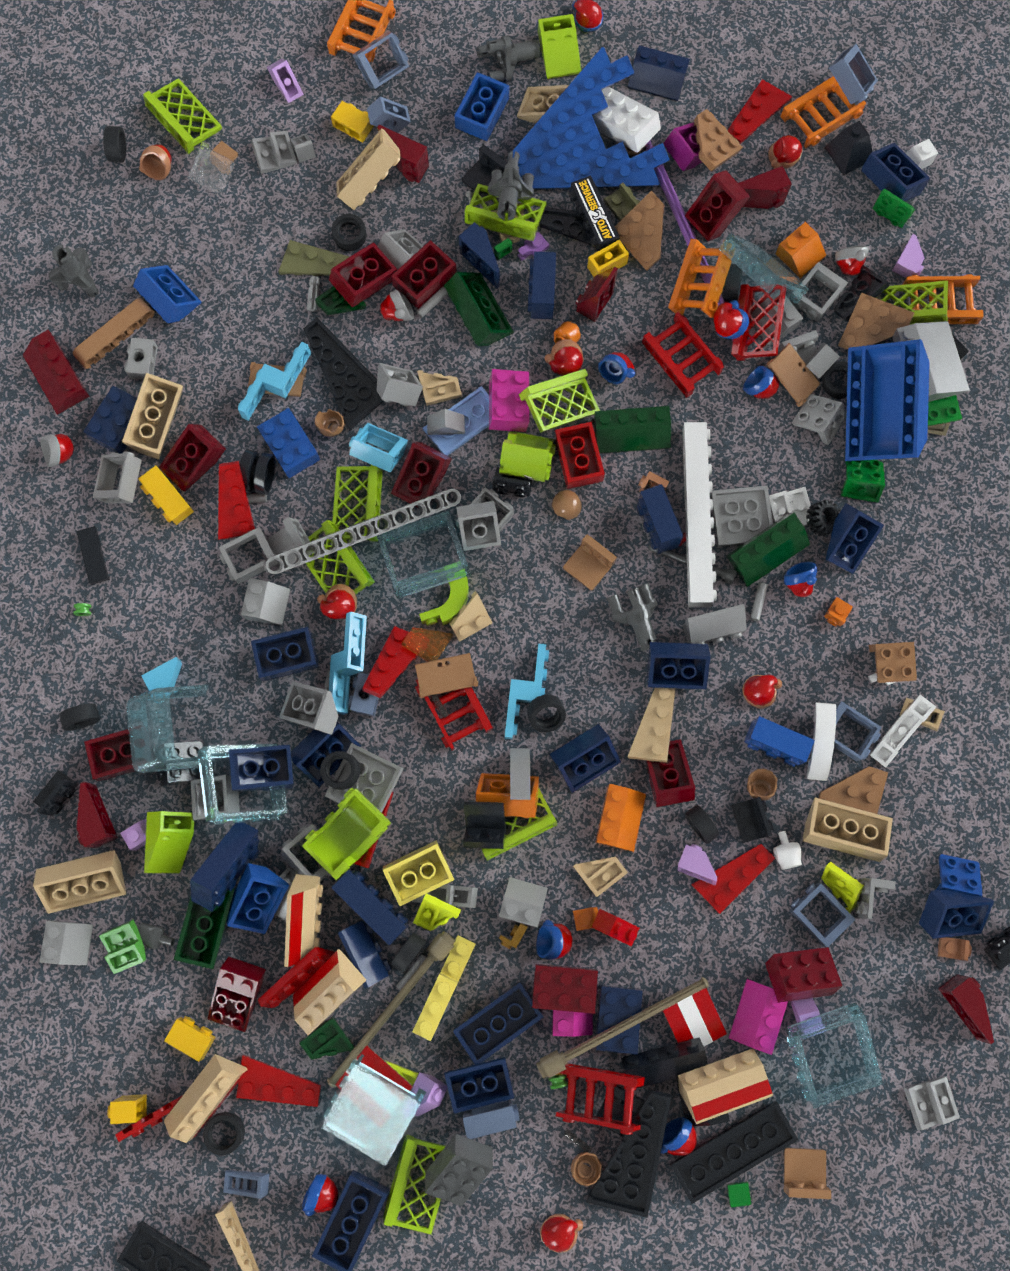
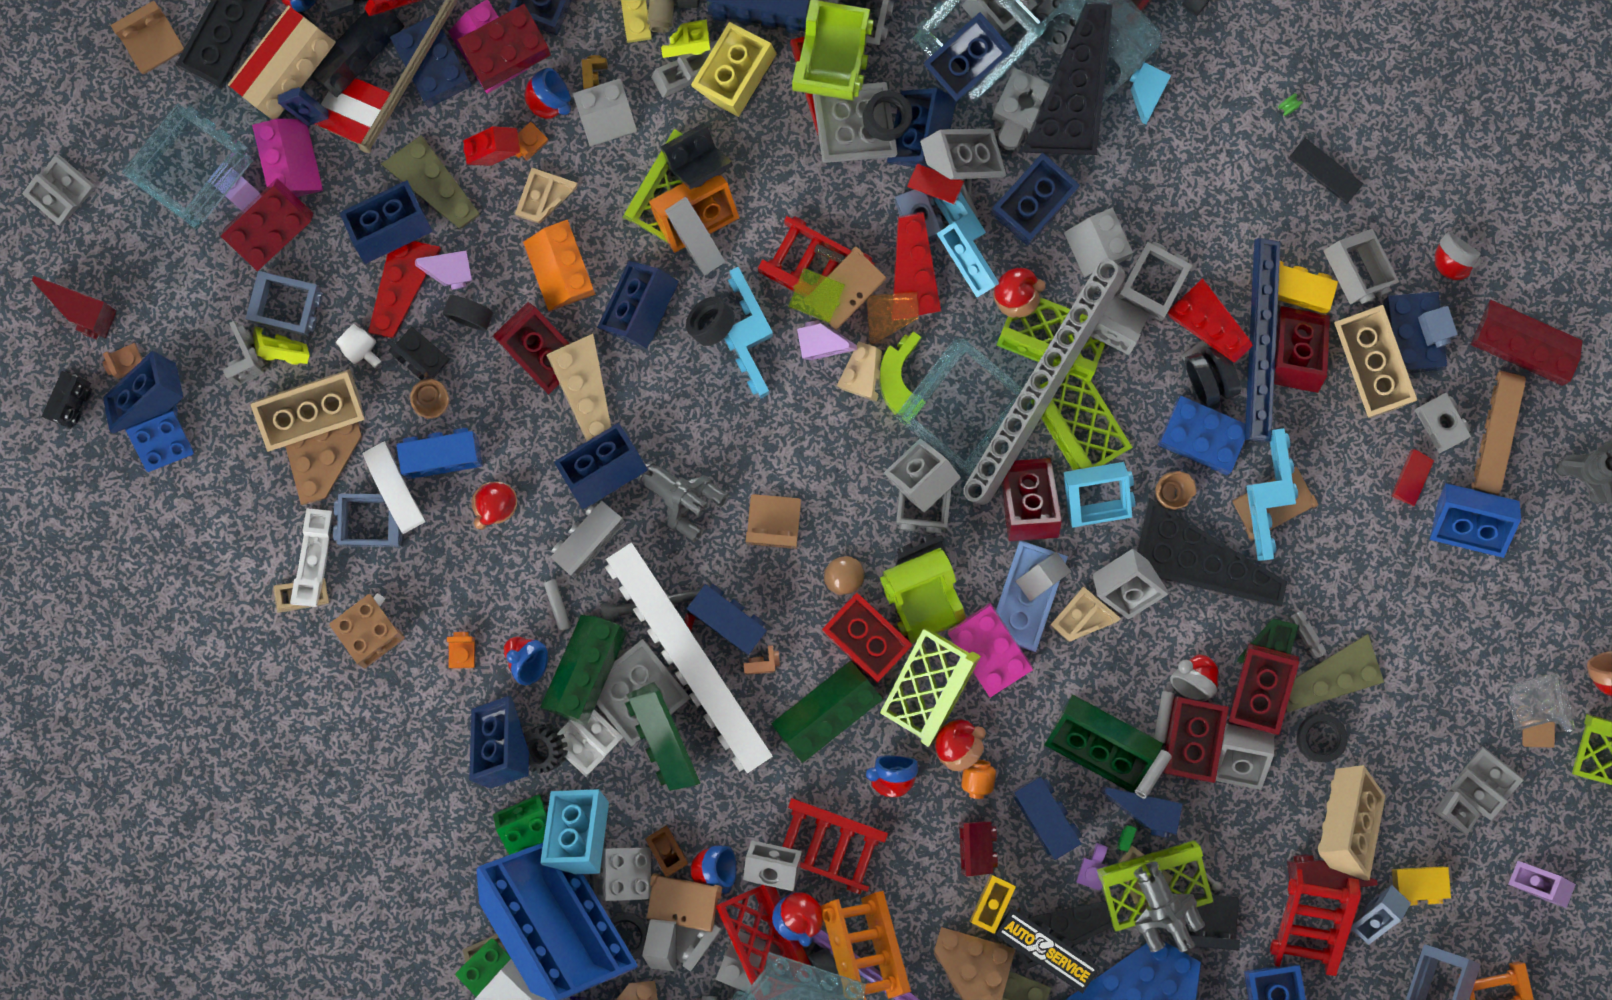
camera: 145 degrees right, 5 degrees up
(99, 406) = (1438, 327): none -> sand blue brick
(184, 342) = (1412, 477): none -> red slope
(209, 472) = (1263, 338): none -> dark blue tile
(213, 696) = (1073, 103): none -> black wing
(249, 719) = (1018, 107): none -> light grey brick
(345, 705) = (935, 184): none -> red slope
(427, 117) = (1336, 936): none -> red fence
(463, 263) = (1153, 774): none -> light grey piece
(467, 681) = (816, 295): none -> clear neon green piece
(482, 653) = (822, 341): none -> lavender slope
(670, 940) = (431, 181): none -> olive wing
(720, 923) = (385, 222): none -> dark blue brick
(726, 357) = (772, 865): none -> light grey brick
(728, 1044) = (303, 106): none -> dark blue plate
(746, 474) = (662, 737): none -> dark green slope
(784, 409) = (666, 851): none -> reddish brown slope
(836, 454) = (575, 831): none -> medium azure slope

